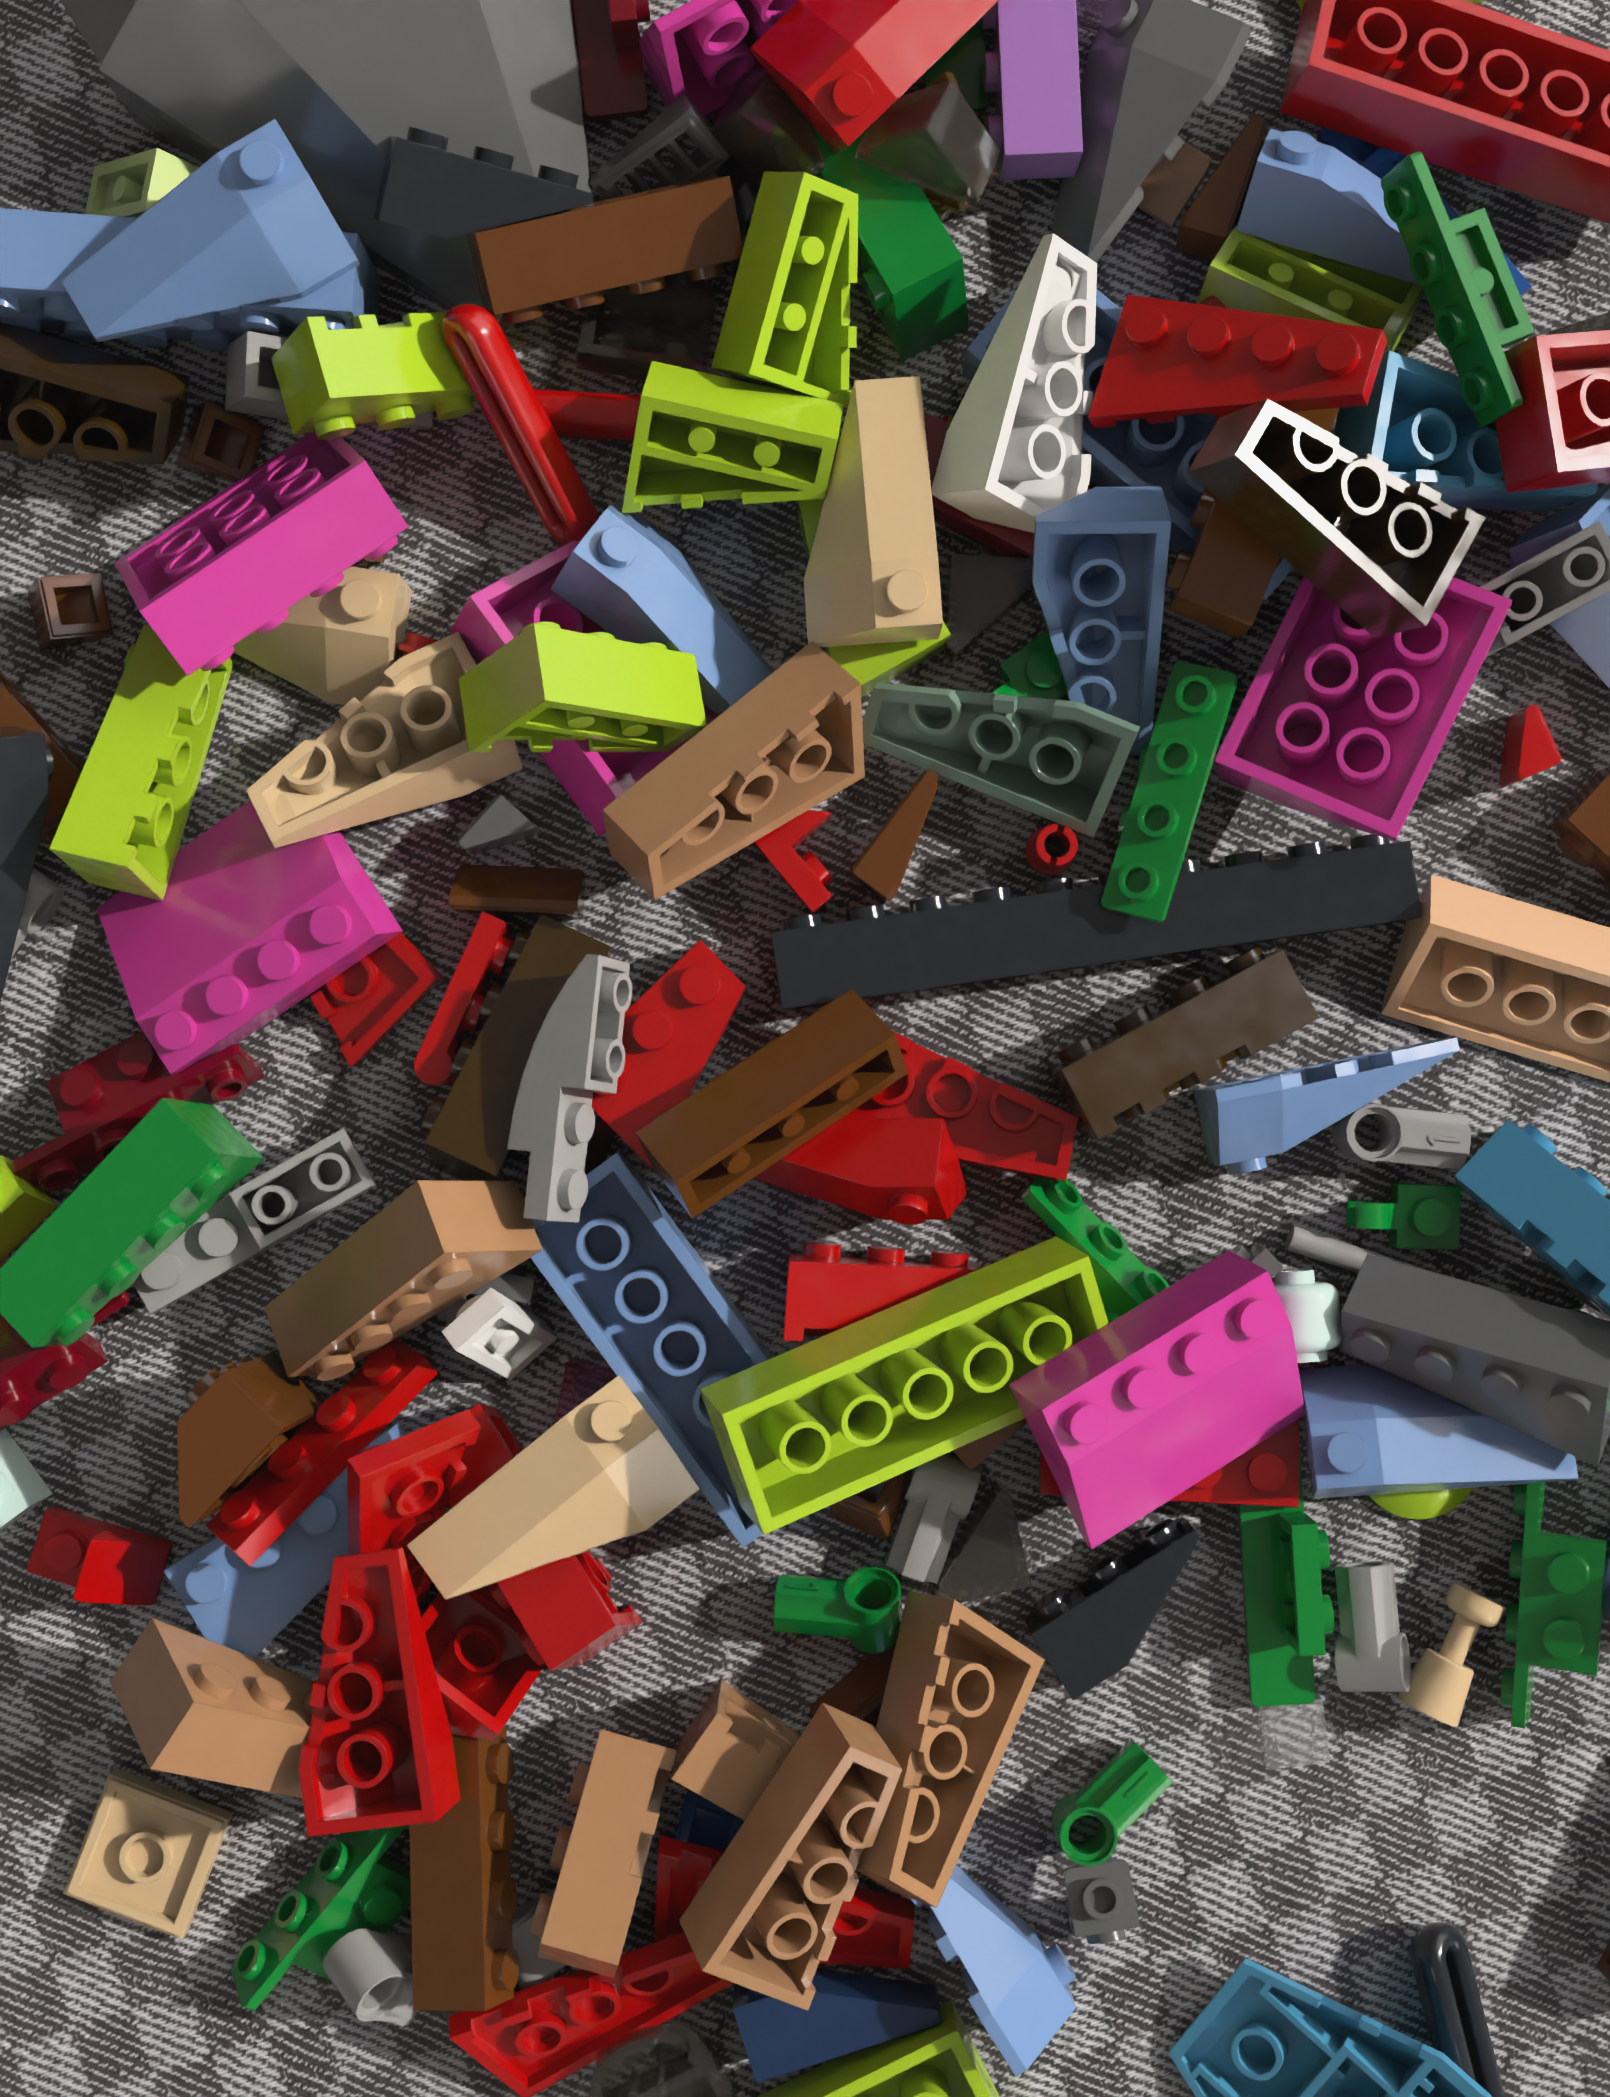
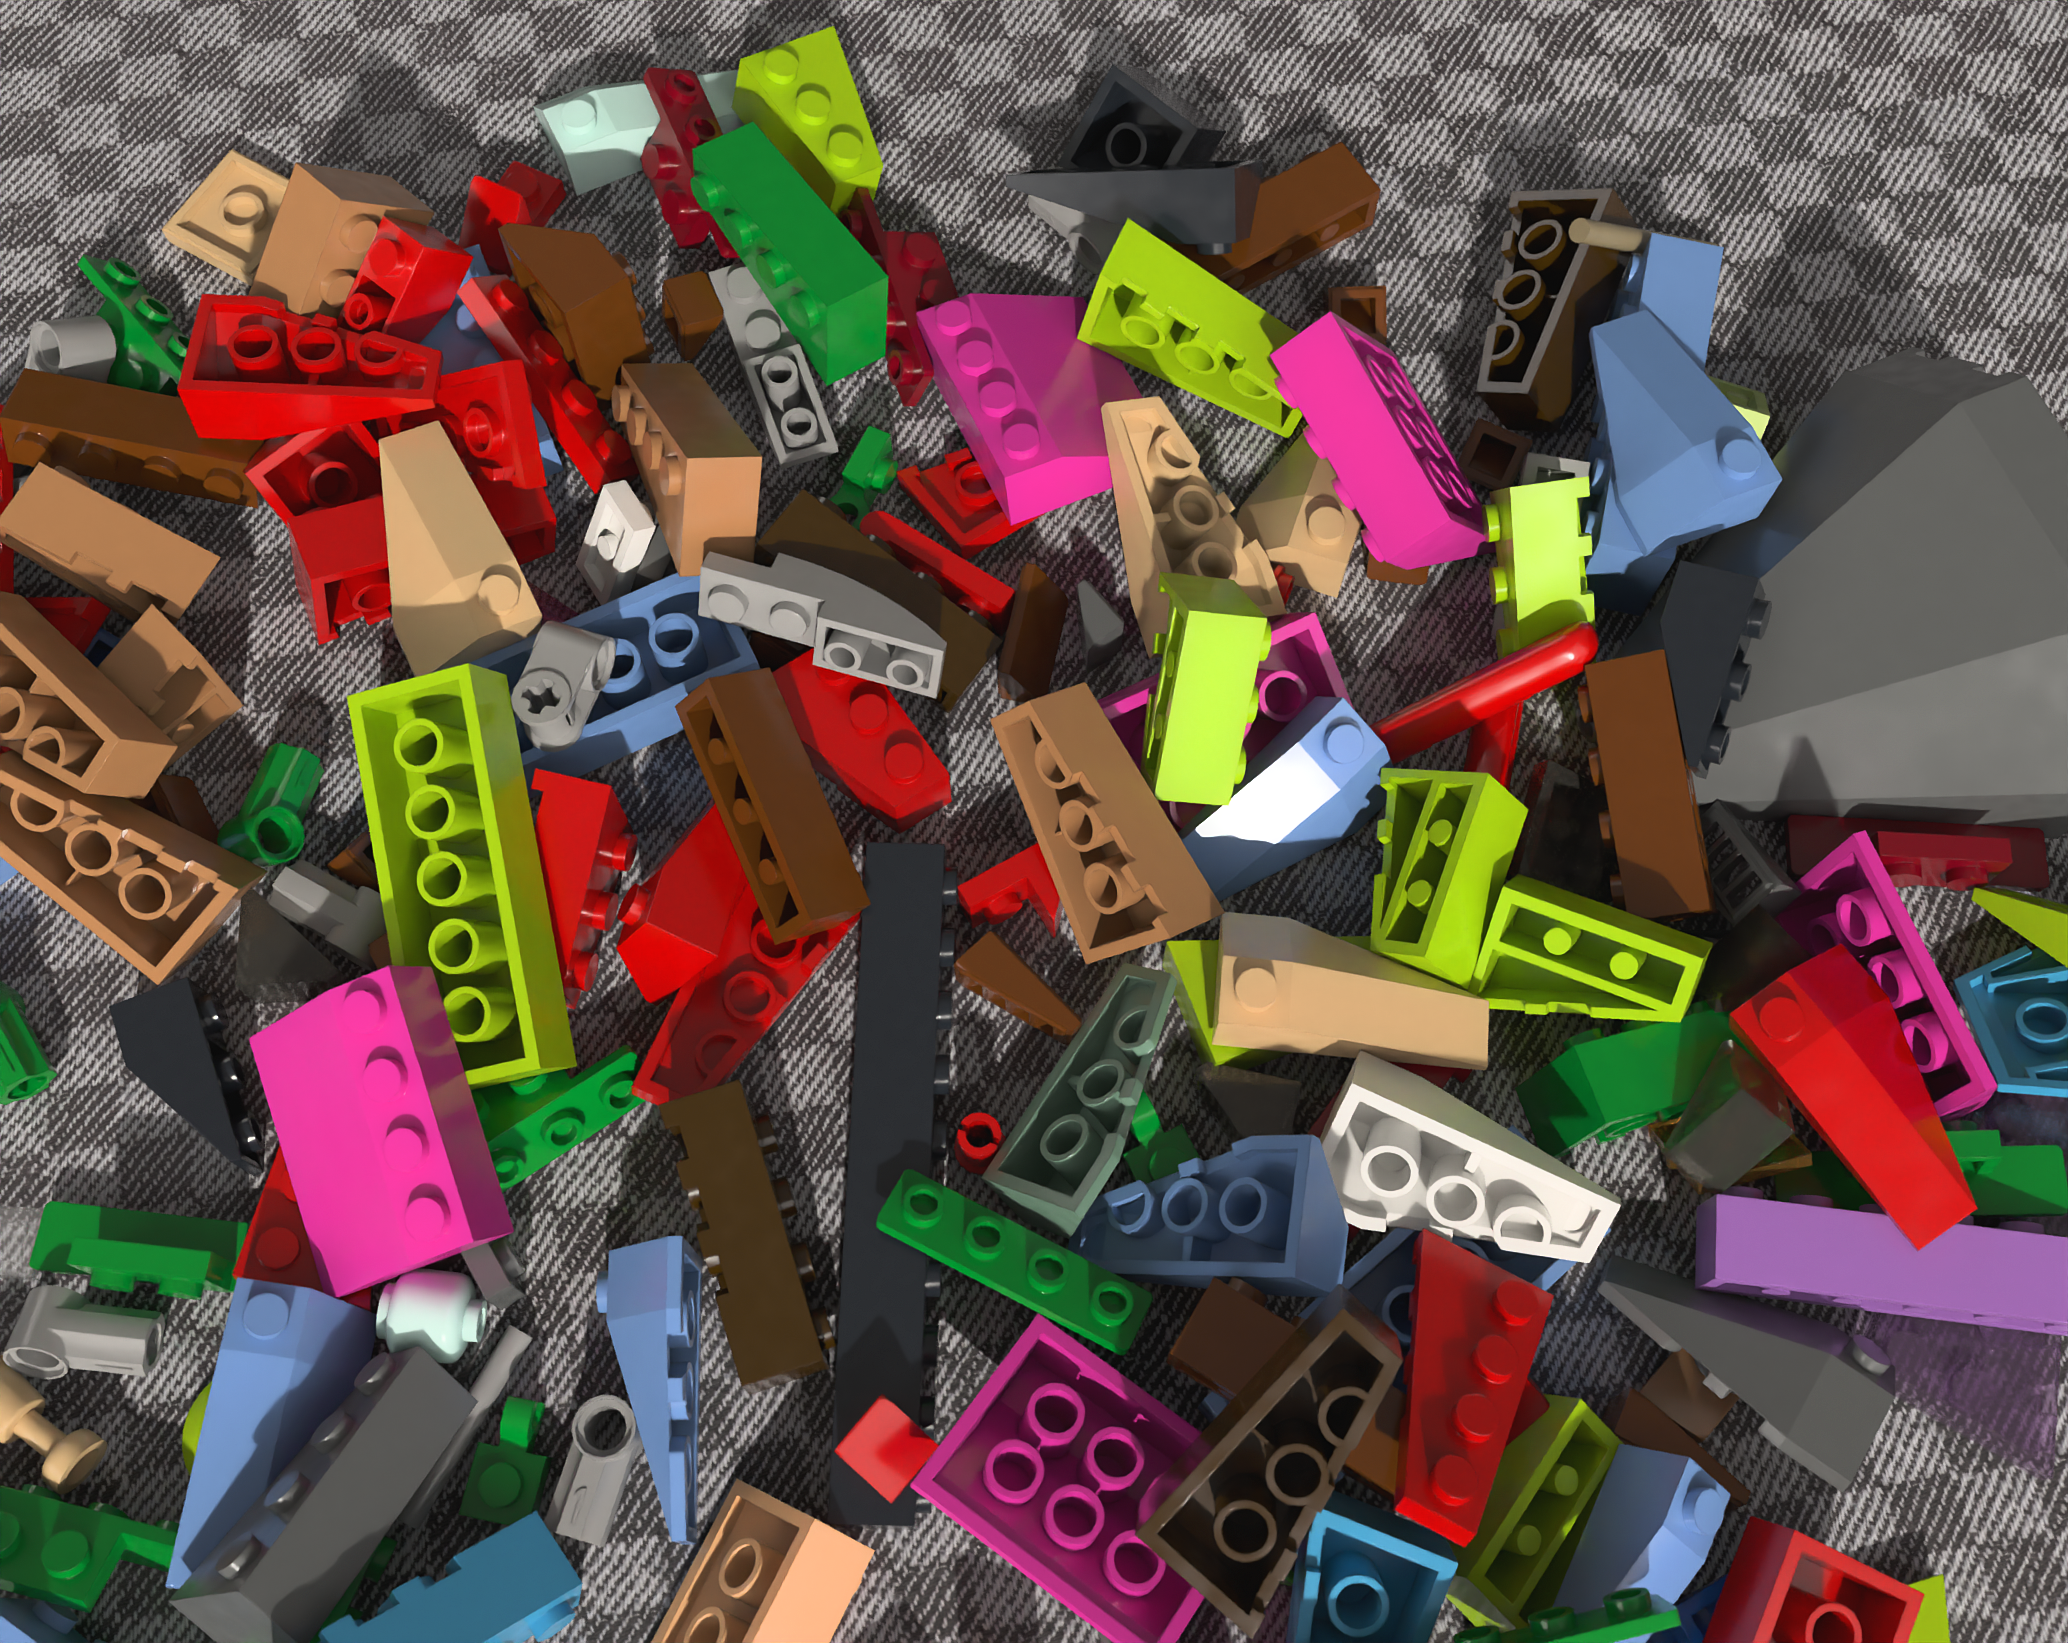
camera: 100 degrees right, 20 degrees down
(195, 1324) = (690, 312): none -> reddish brown slope
(249, 1627) = (405, 281): none -> red slope
(359, 1092) = (866, 474): none -> green plate
(670, 1336) = (562, 684): none -> light grey piece
(1354, 875) = (886, 1448): none -> slope

